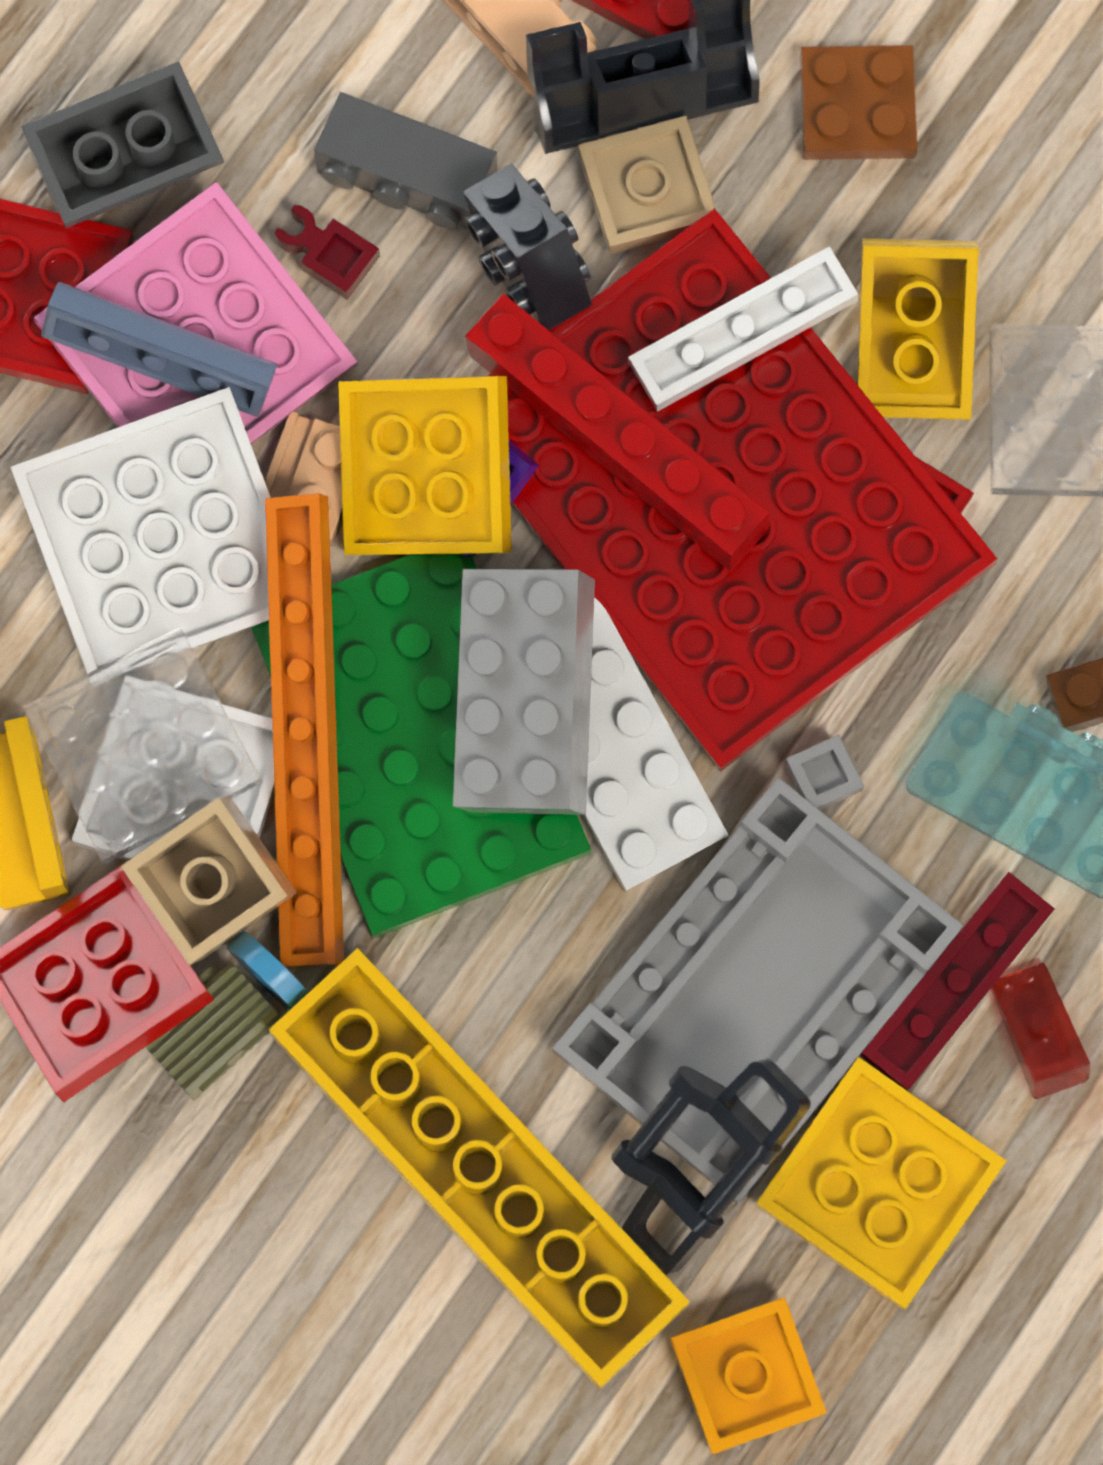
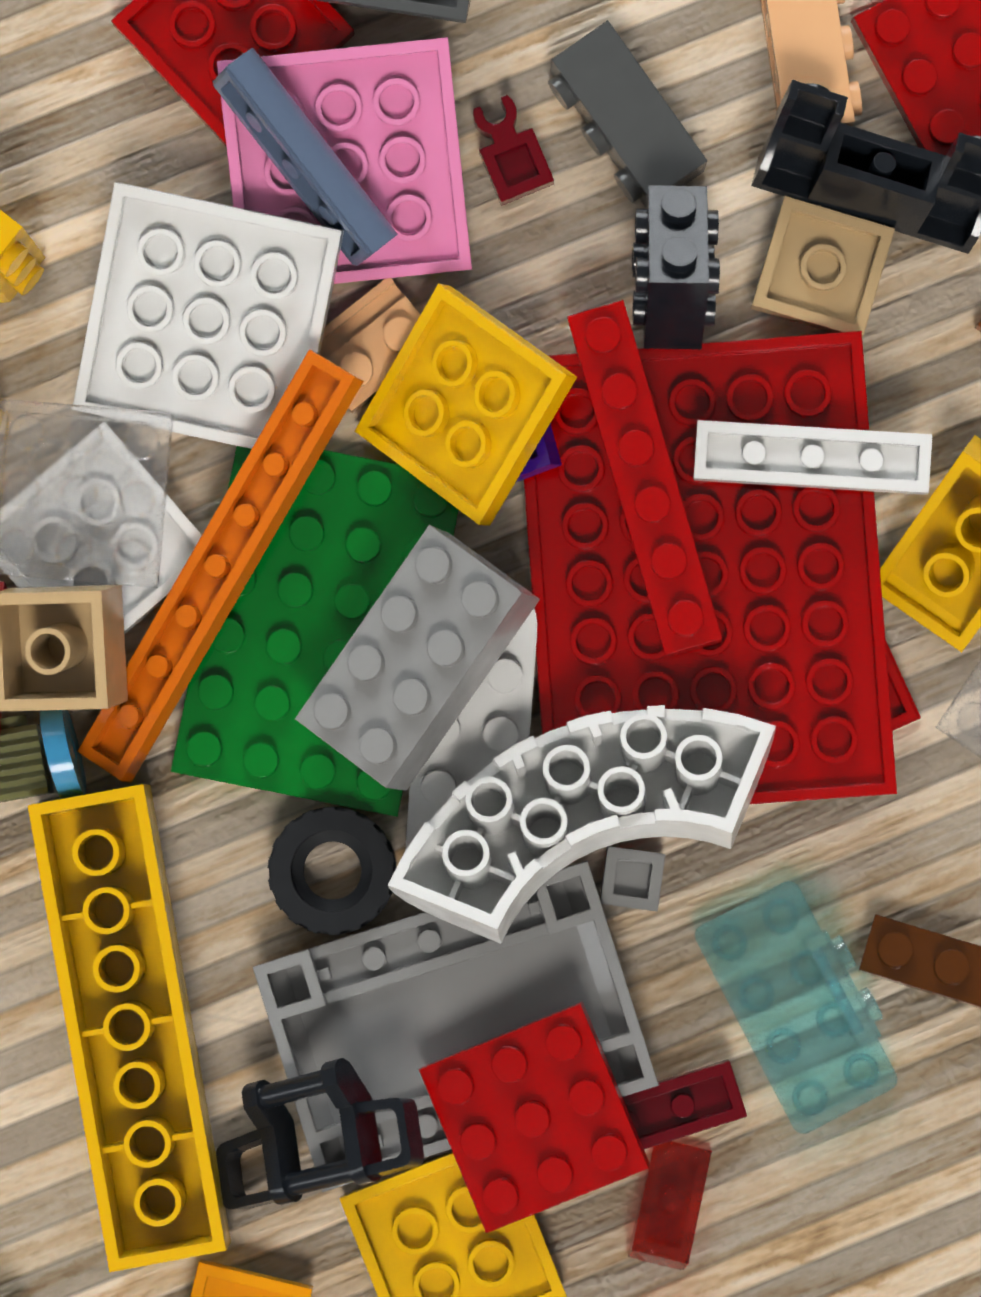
camera: 30 degrees right, 10 degrees up
(573, 885) = (288, 878): none -> black tyre
(733, 724) = (576, 793): none -> white brick
(877, 1019) = (534, 1117): none -> red plate

